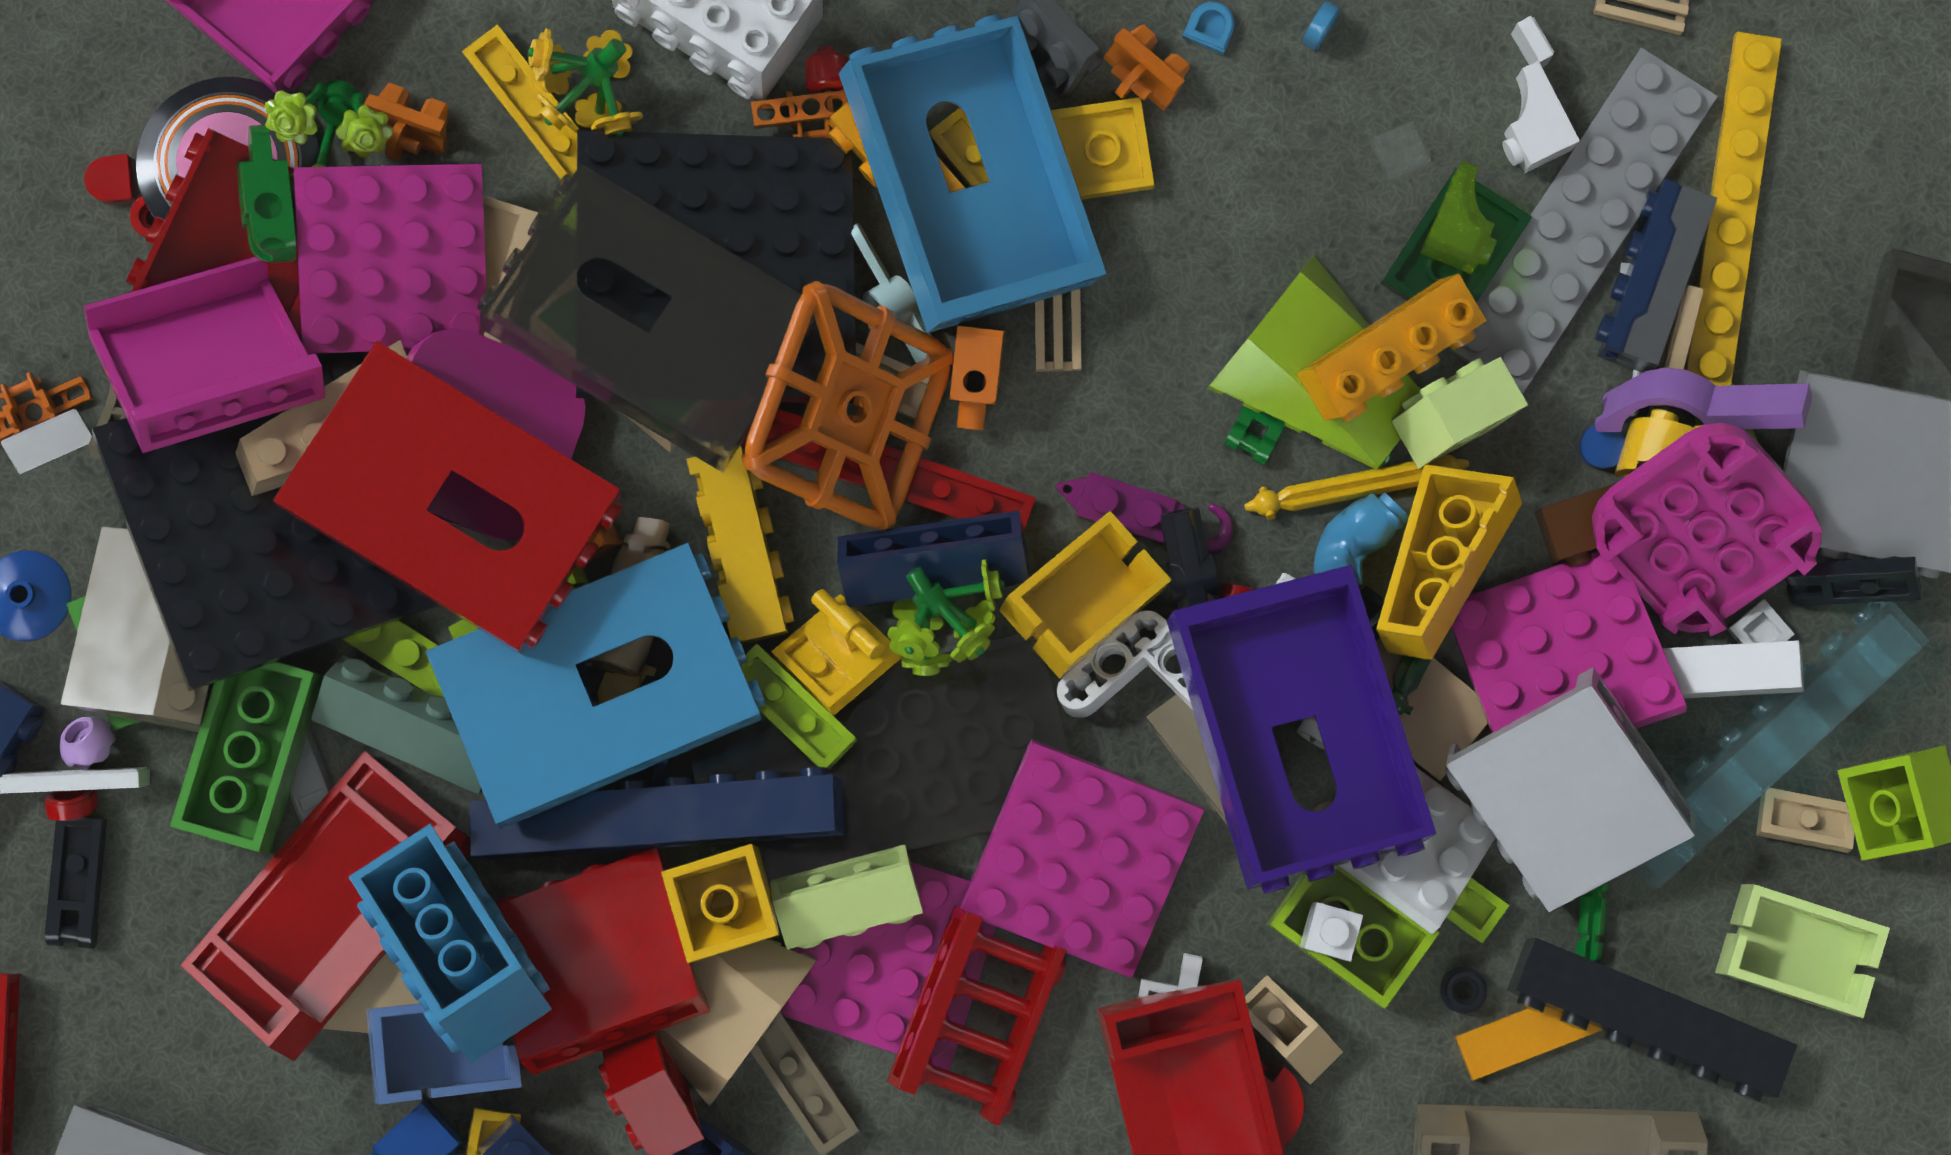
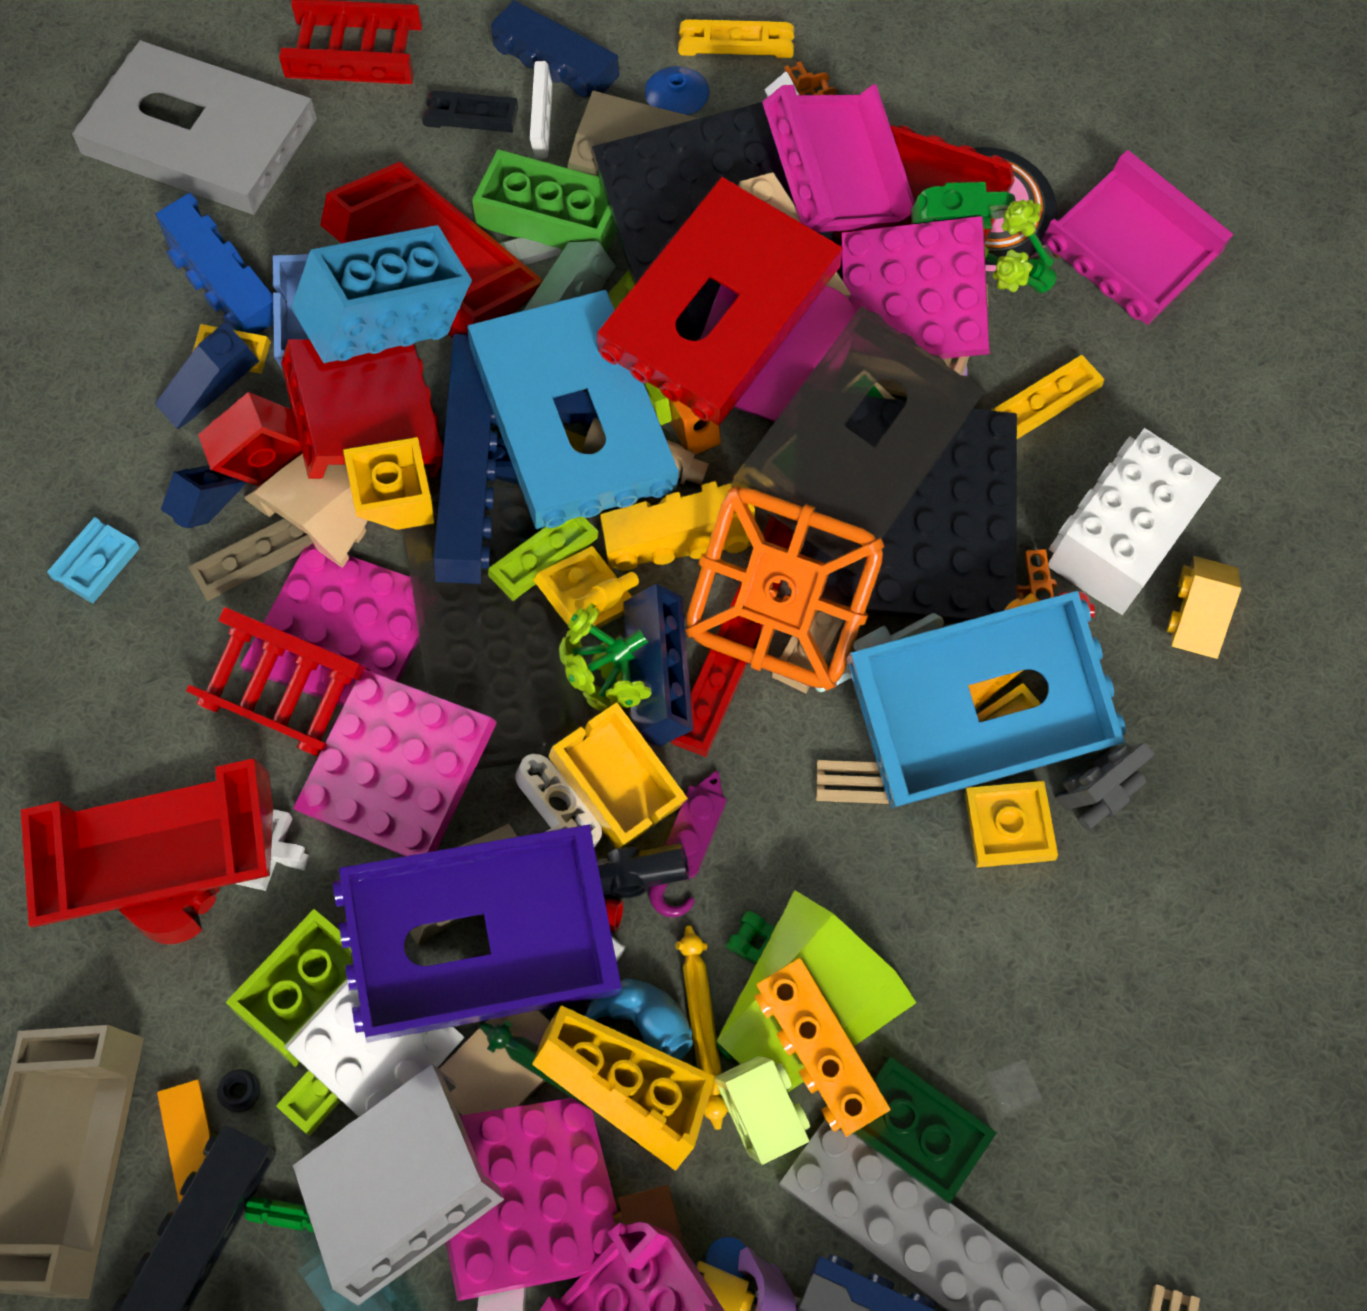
camera: 90 degrees right, 20 degrees down
(70, 804) = (522, 107): red tile -> none
(86, 742) = (566, 115): lavender plate -> none
(110, 179) = (979, 136): red tile -> none
(410, 127) = (1020, 315): orange hips -> none
(604, 59) = (1068, 420): plant -> none
(846, 897) = (385, 582): yellowish green brick -> none
(978, 351) = (817, 706): orange torso -> none
(1144, 71) = (1078, 856): orange hips -> none
(1210, 27) = (1125, 924): dark azure tile -> none
(1290, 1030) = (225, 932): tan slope -> none
(1321, 25) = (1131, 1019): dark azure tile -> none
(1331, 931) = (296, 949): white brick -> none
(1460, 230) = (941, 1121): clear neon green arch -> none
(1532, 41) = (1120, 1217): white tile -> none
(1542, 126) = (1036, 1217): white arch -> none

